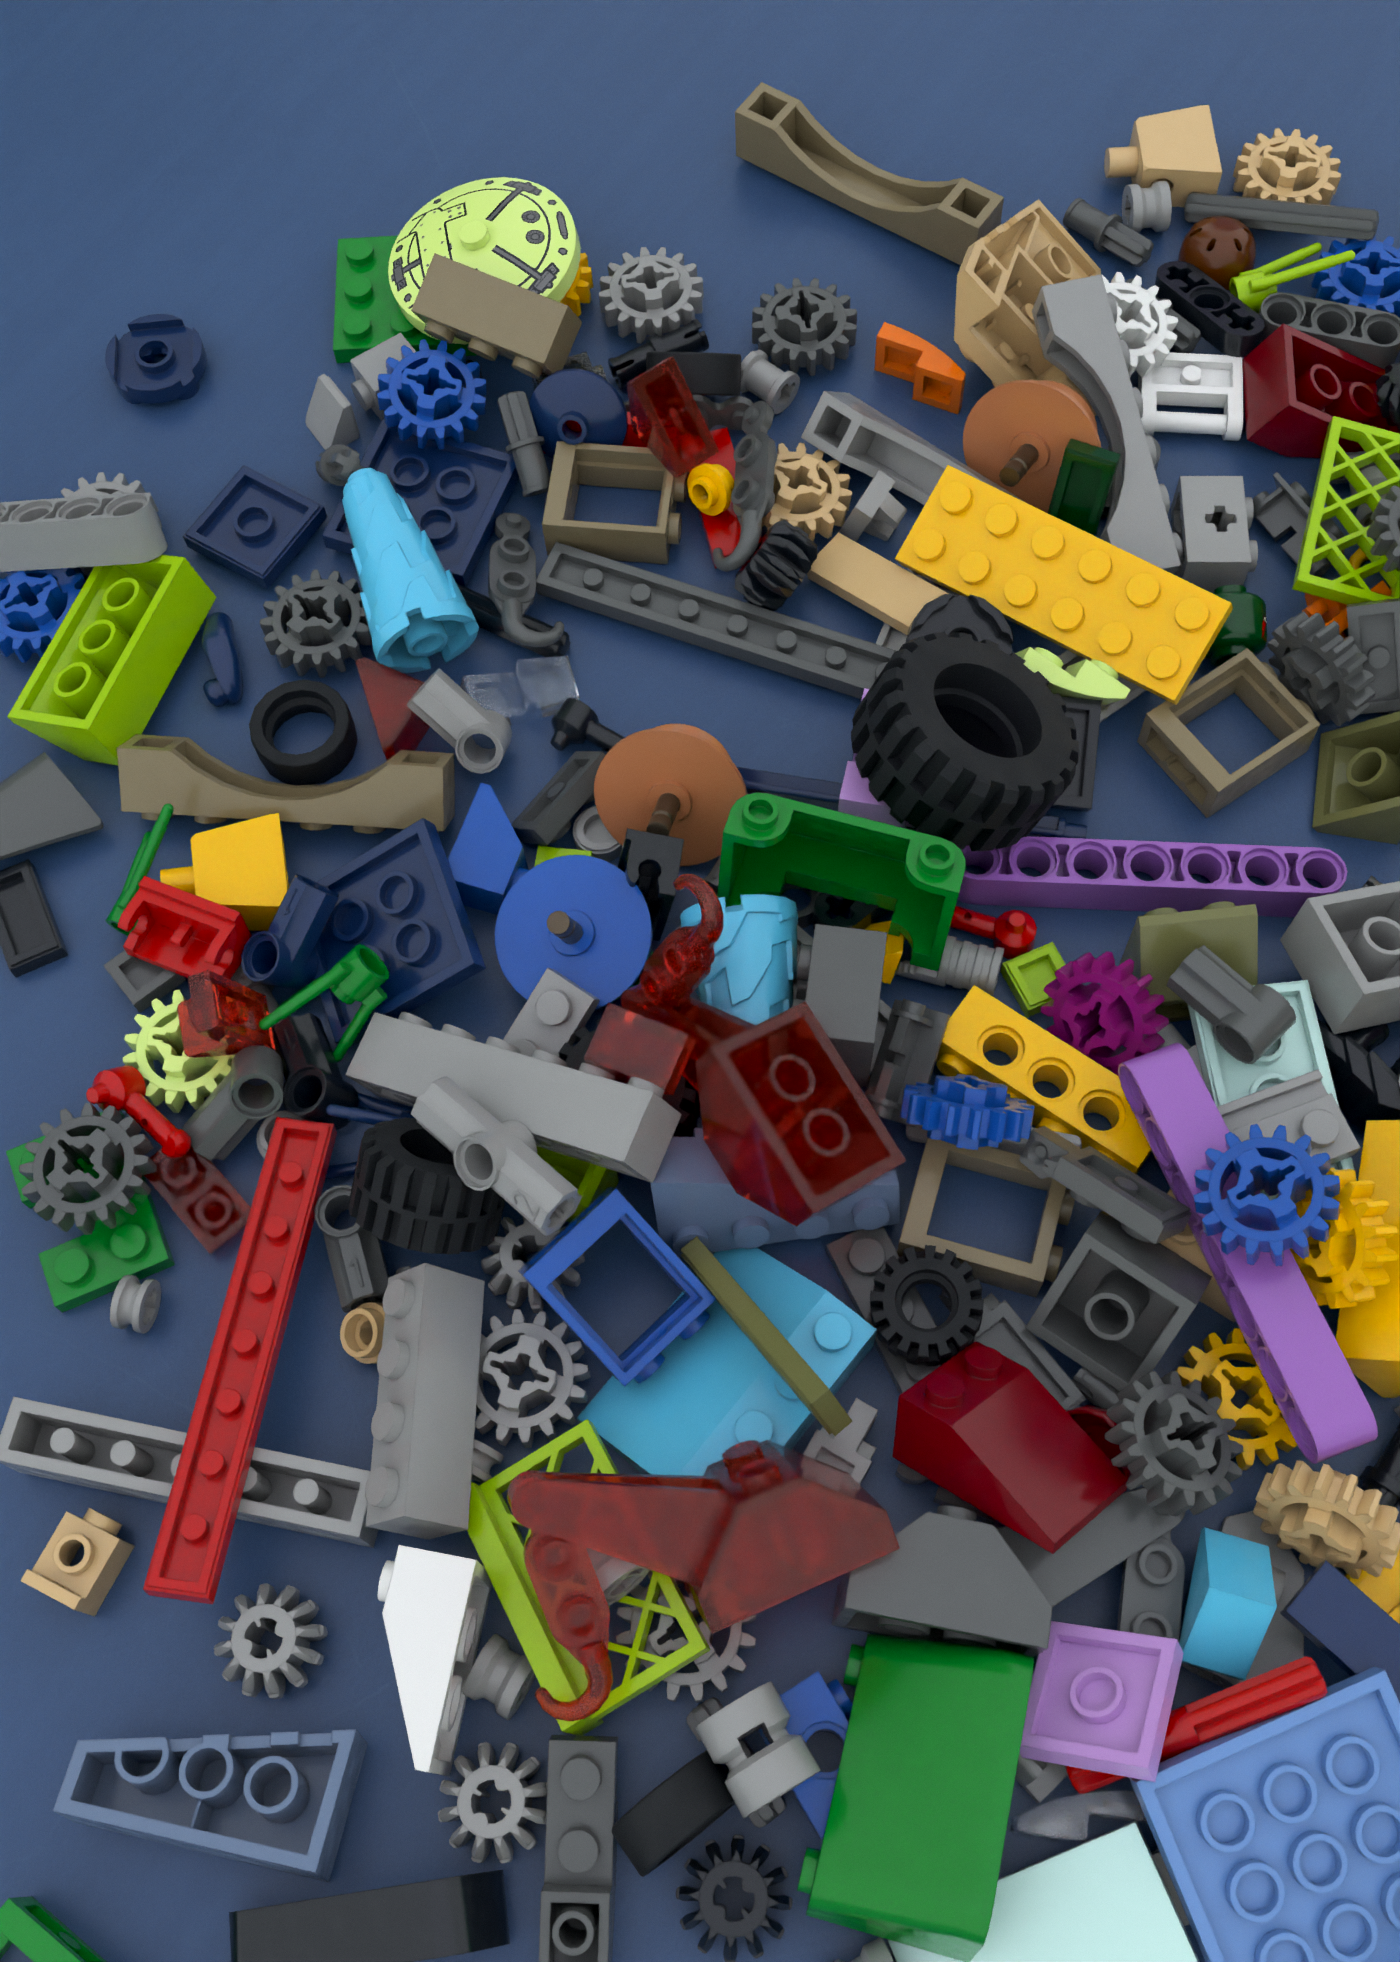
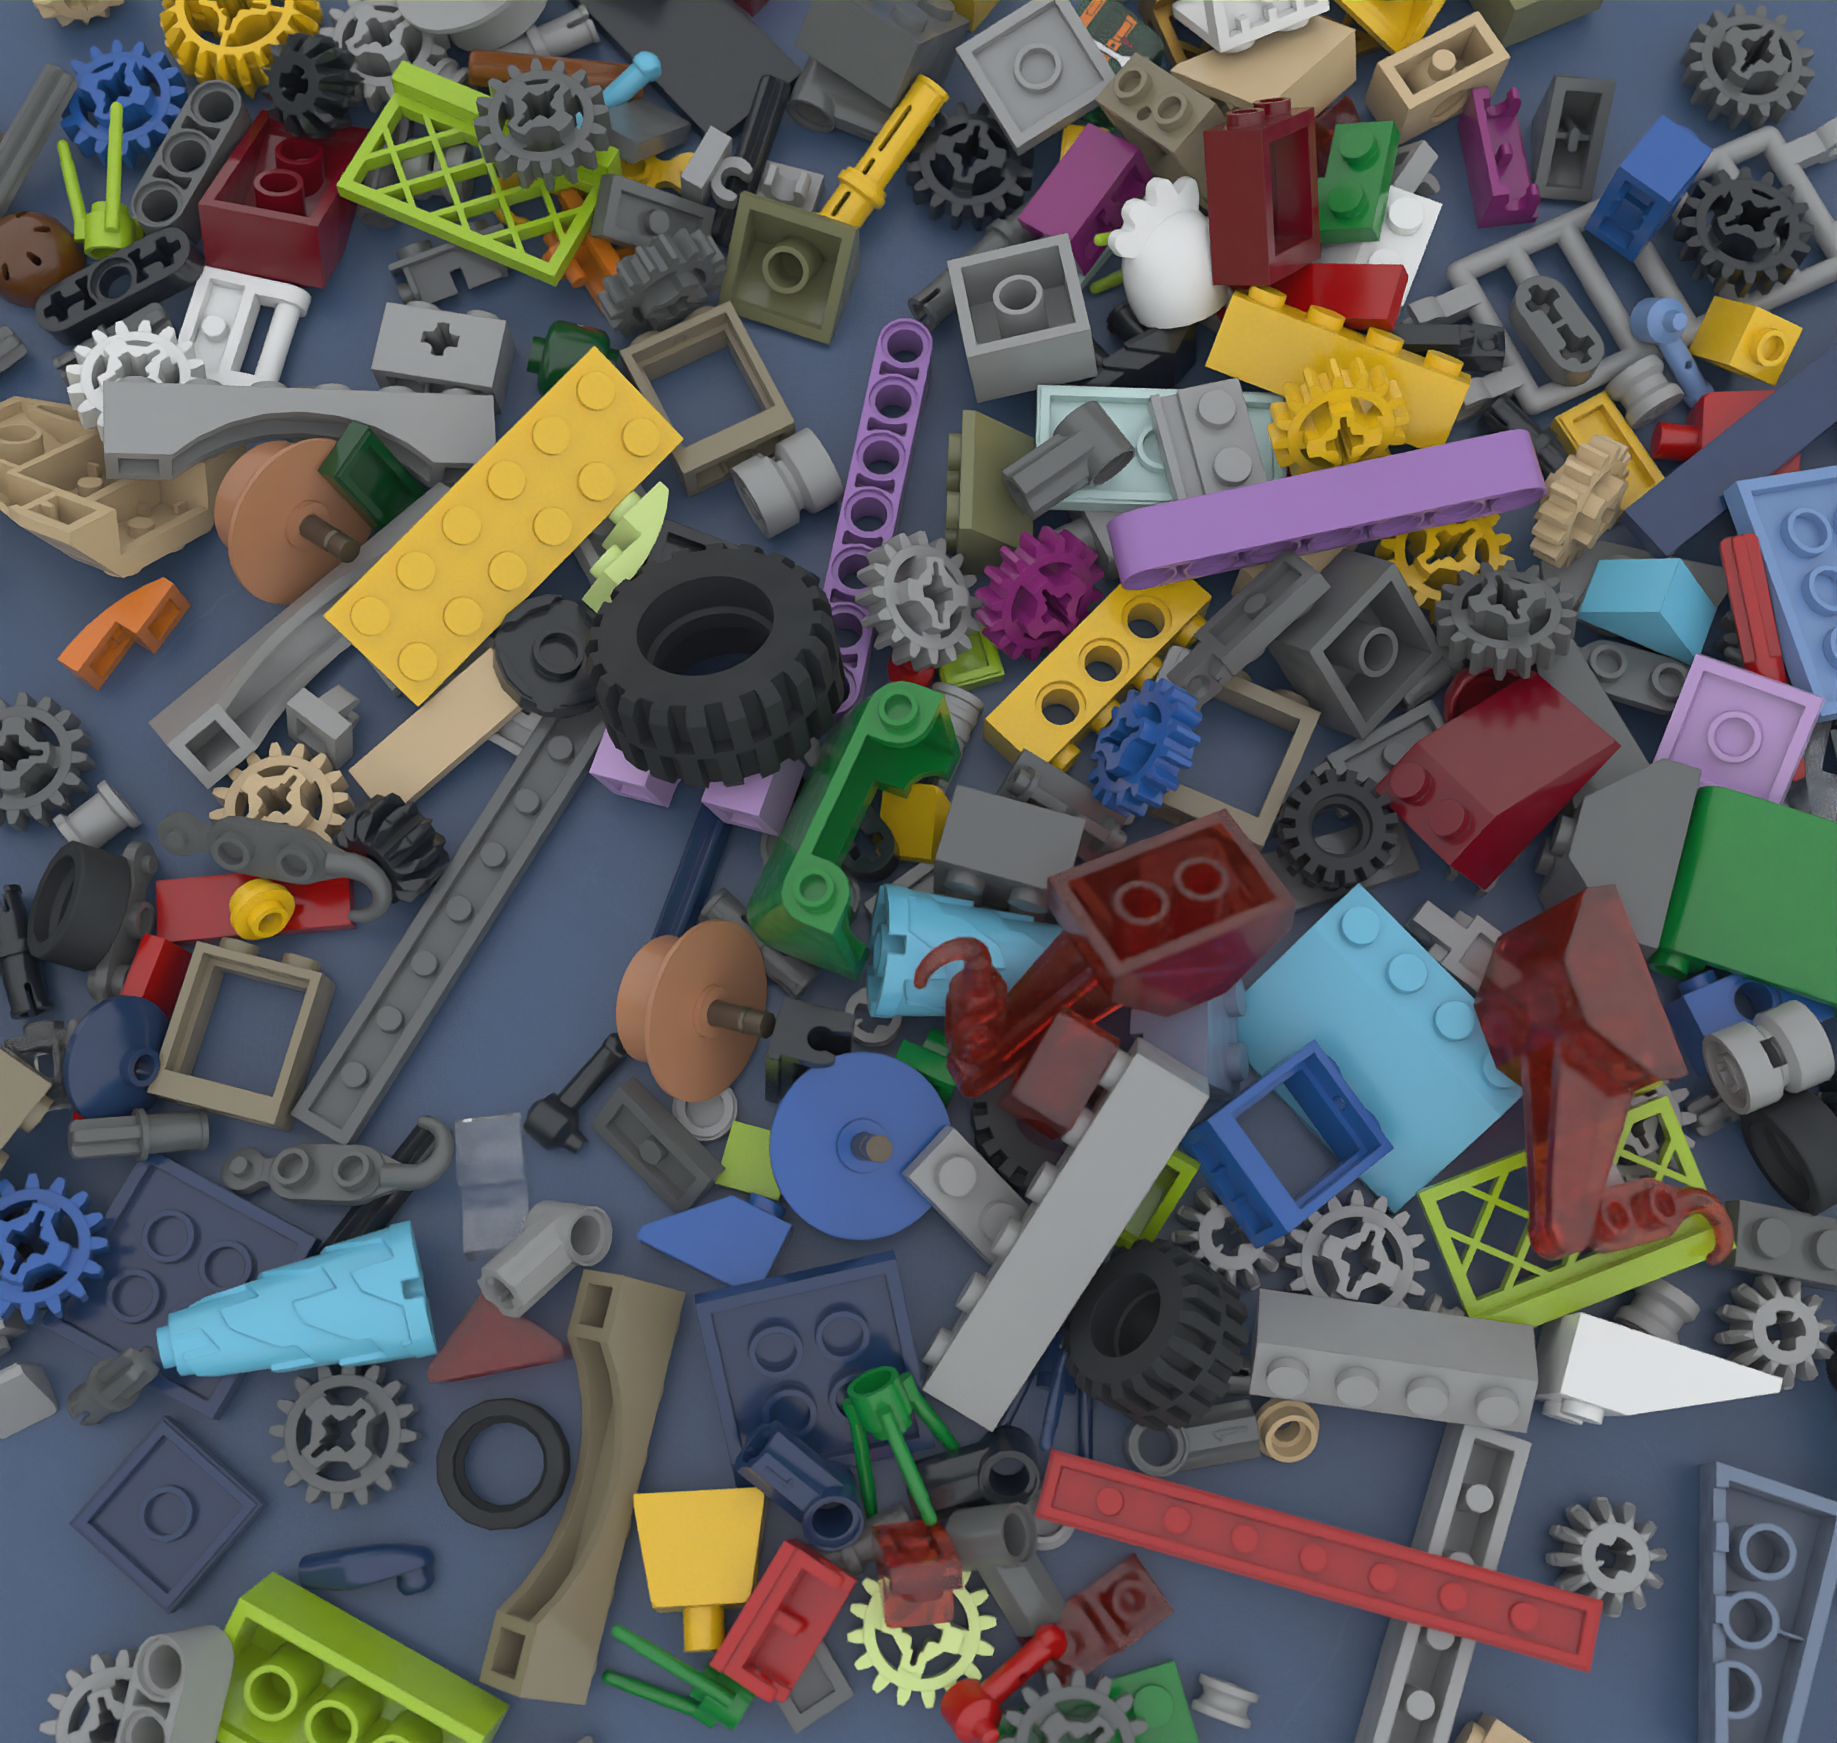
camera: 90 degrees left, 10 degrees up
(496, 1155) = (1162, 1244): light grey piece -> none
(669, 418) = (171, 937): clear red slope -> none
(766, 1338) = (1367, 992): olive tile -> none
(1064, 888) = (922, 605): none -> light grey gear
(1156, 795) = (790, 481): none -> light grey wheel
(1277, 1169) = (1336, 456): blue gear -> none

